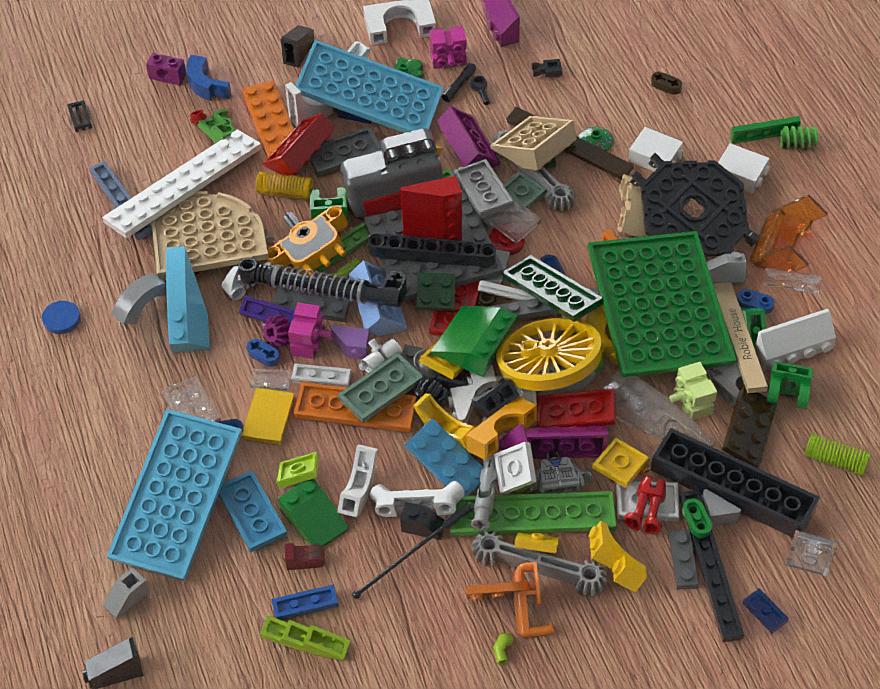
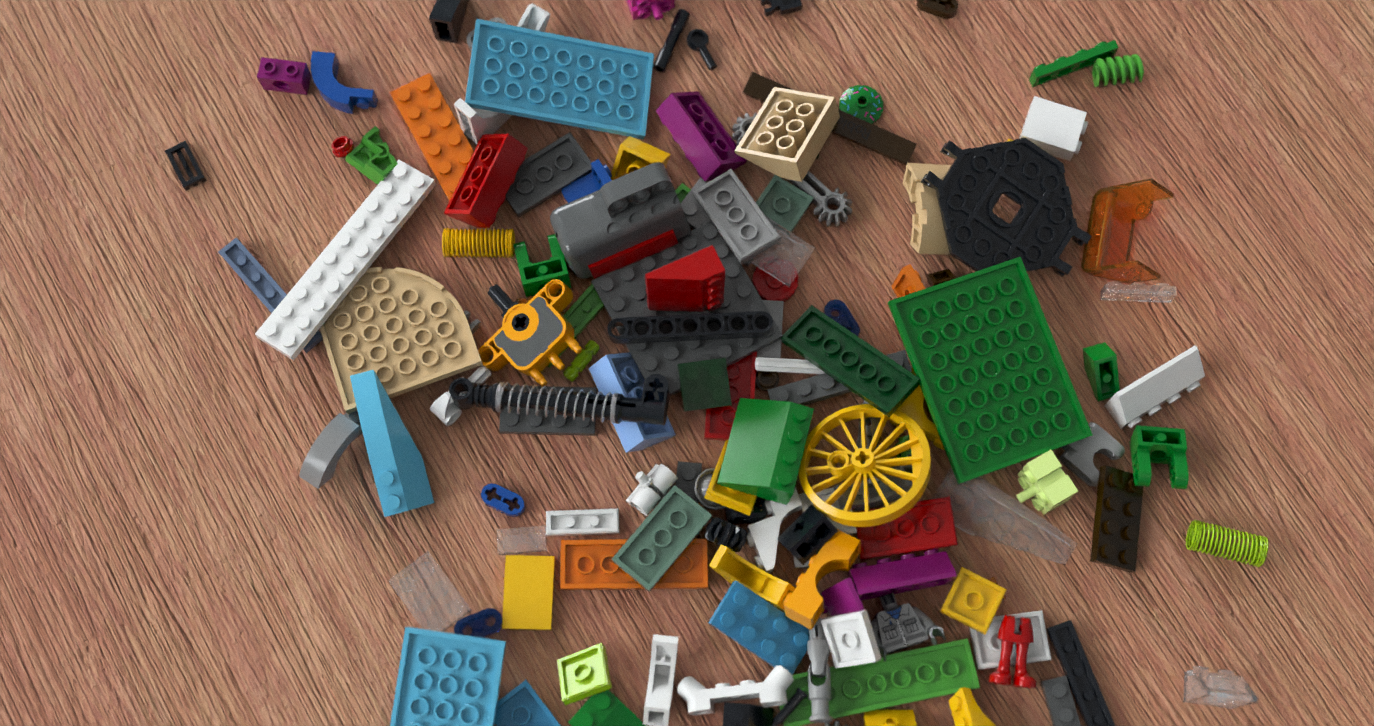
camera: 10 degrees left, 20 degrees up
(61, 317) = (234, 486): blue tile -> none
(261, 310) = (498, 441): dark purple plate -> none
(276, 330) = (516, 471): magenta gear -> none
(306, 330) = (554, 467): dark pink brick -> none
(351, 341) = (611, 469): medium lavender slope -> none
(410, 66) = (601, 26): green plate -> none
(654, 142) = (941, 117): white brick -> none
(697, 519) = (1077, 664): green plate -> none
(720, 510) = (1096, 643): light grey slope -> none
(728, 268) = (1059, 288): light grey slope -> none
(739, 483) = (1112, 606): black brick -> none
(740, 339) = (1090, 395): tan tile -> none
(753, 299) = (1097, 329): blue plate -> none

